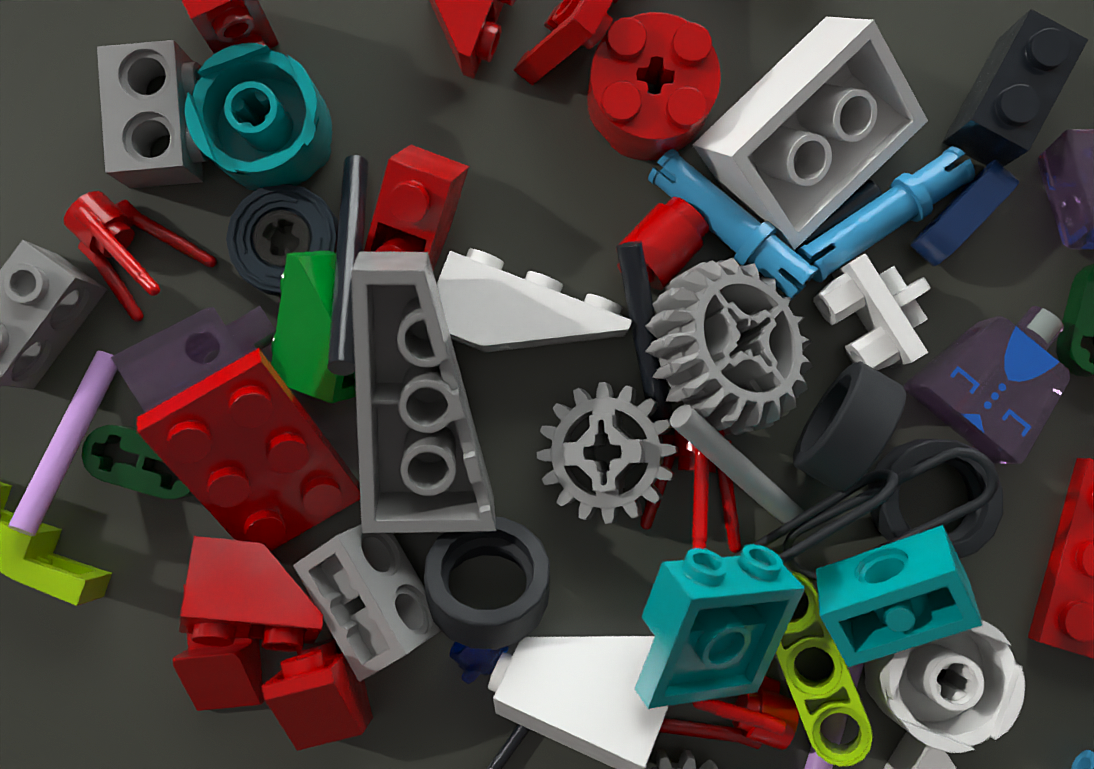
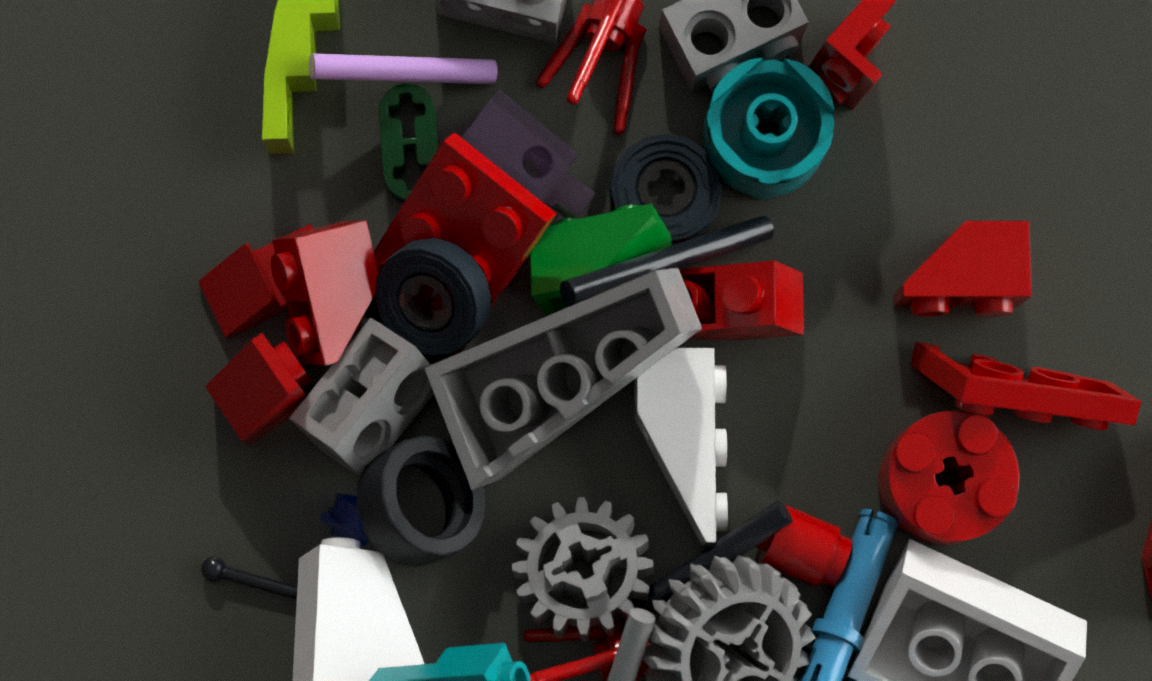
camera: 65 degrees right, 5 degrees down
(281, 473) = (456, 280): none -> black bush

